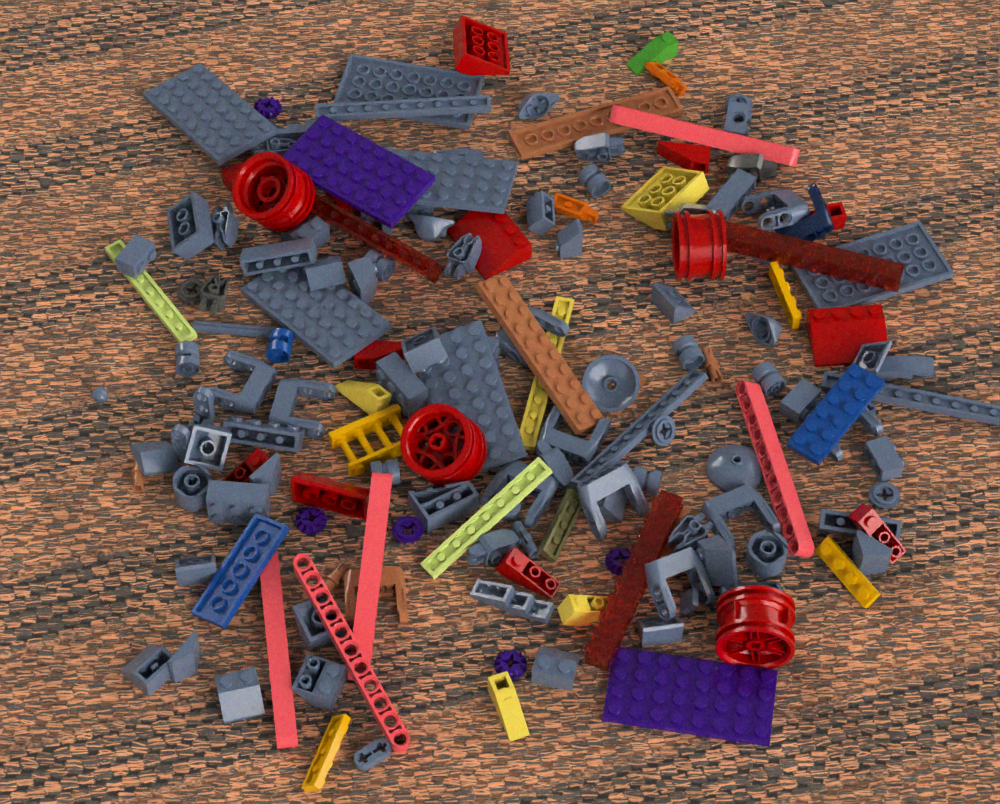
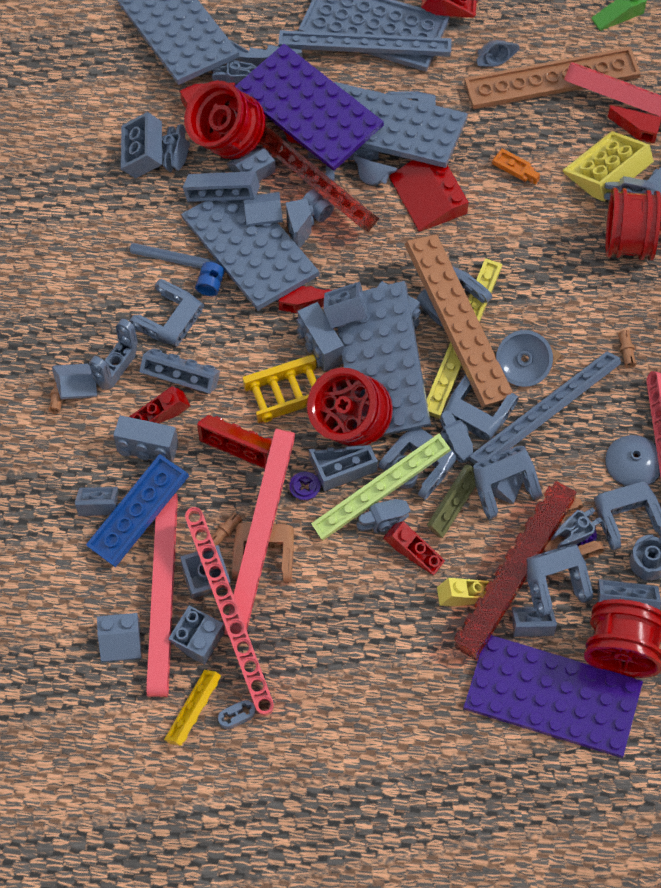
camera: 10 degrees right, 10 degrees up
(100, 394) = (32, 309): sand blue hinge -> none
(135, 256) = (85, 171): sand blue brick -> none
(149, 669) = (39, 599): sand blue slope -> none
(156, 300) = (95, 209): yellowish green plate -> none
(186, 659) = (73, 595): sand blue slope -> none
(187, 359) = (119, 282): sand blue wheel -> none
(190, 285) = (134, 205): dark grey gear -> none
(191, 487) = (103, 416): sand blue brick -> none
(208, 446) = (124, 378): sand blue slope -> none
(214, 295) = (154, 219): dark grey hinge -> none
(268, 473) = (178, 415): sand blue slope -> none
(270, 112) = (237, 32): dark purple gear -> none
(286, 400) = (208, 336): sand blue connector -> none
(305, 525) = (221, 467): dark purple gear -> none
(365, 395) = (284, 341): light yellow slope -> none
(390, 466) = (292, 423): sand blue wheel -> none
(463, 256) = (400, 206): sand blue hinge -> none
(507, 705) = (373, 684): light yellow slope -> none
(512, 601) = (394, 573): sand blue slope -> none
(517, 669) = (388, 645): dark purple gear -> none
(520, 531) = (417, 510): sand blue pin -> none
(540, 213) = (482, 169): sand blue brick -> none
(555, 668) = (426, 648): sand blue slope -> none
(570, 240) = (507, 201): sand blue slope -> none
(594, 180) = (541, 140): sand blue wheel -> none
(599, 147) = (550, 105): sand blue hinge -> none
(612, 562) = (498, 540): dark purple gear -> none
(648, 481) = (544, 464): sand blue wheel -> none
(667, 77) = (629, 36): orange hinge -> none
(667, 435) = (572, 417): sand blue gear -> none
(671, 302) = (597, 278): sand blue slope -> none
(688, 352) = (606, 335): sand blue wheel -> none
(689, 600) = (567, 596): sand blue tile -> none
(718, 561) = (601, 561): sand blue slope -> none

